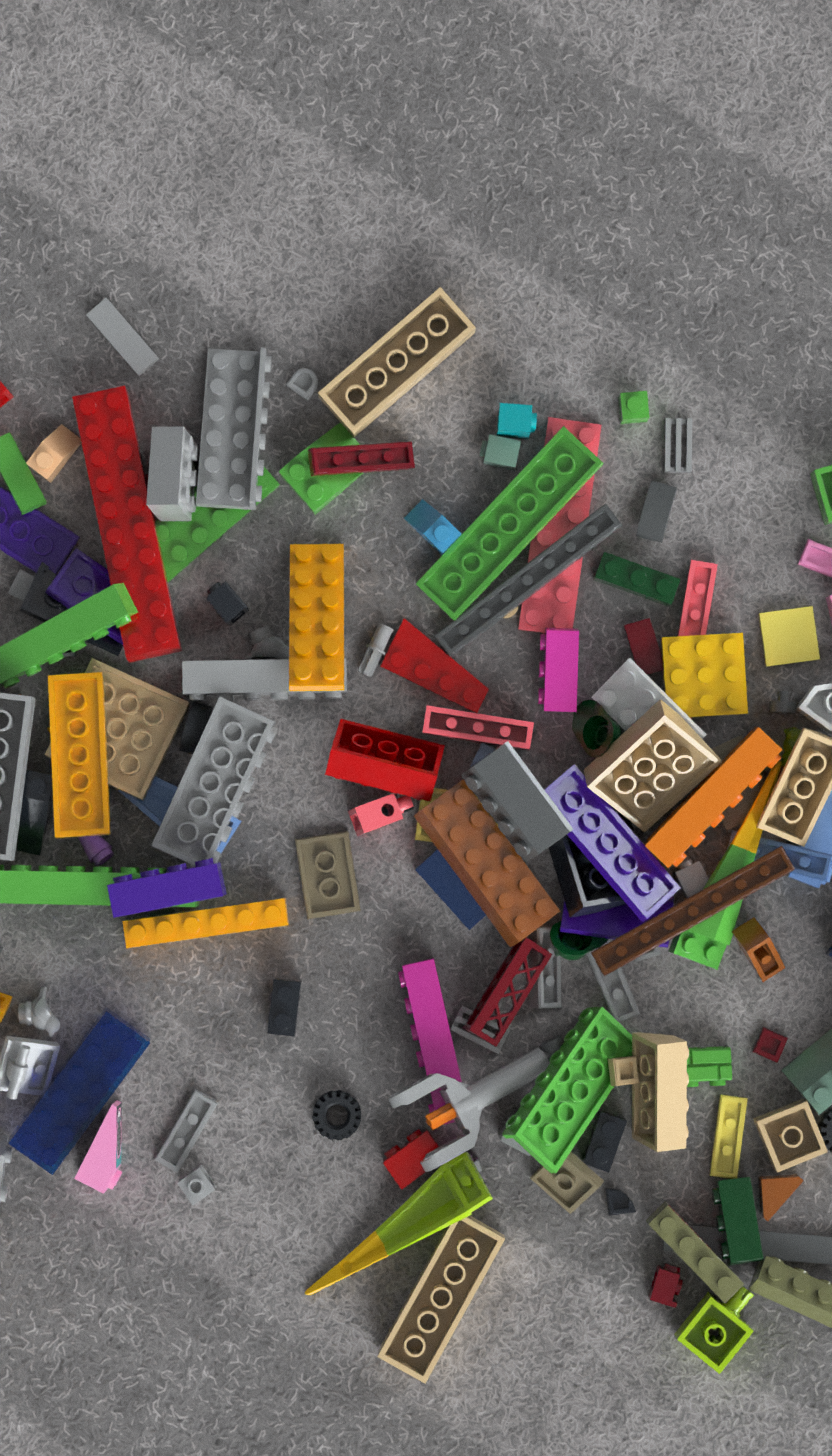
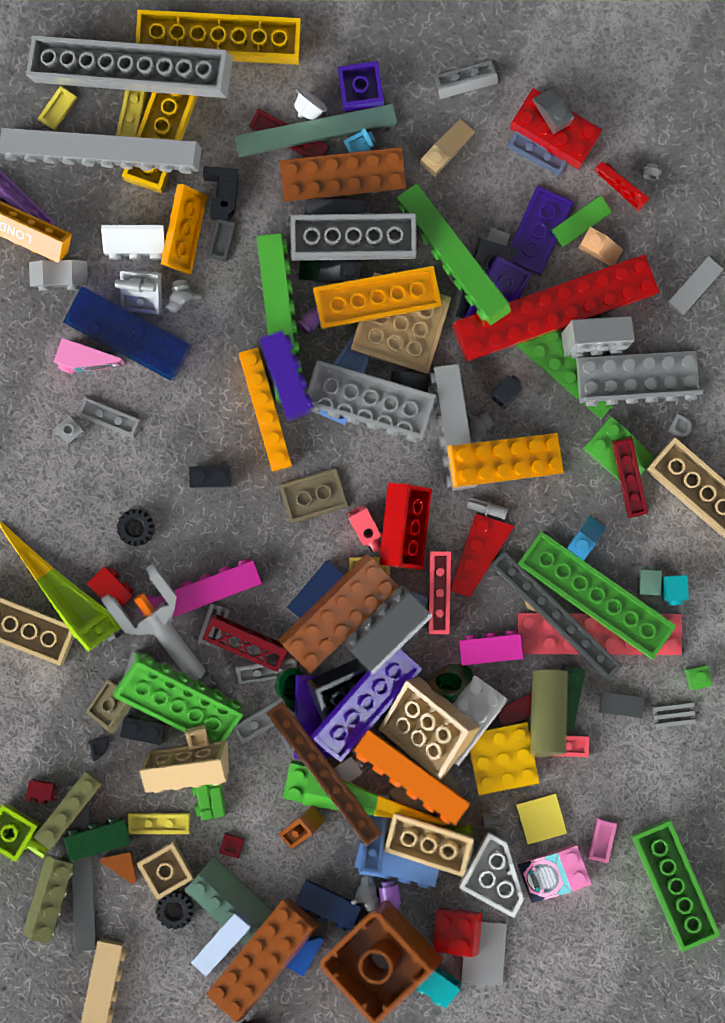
camera: 80 degrees right, 0 degrees up
(654, 607) = (548, 713): none -> olive brick

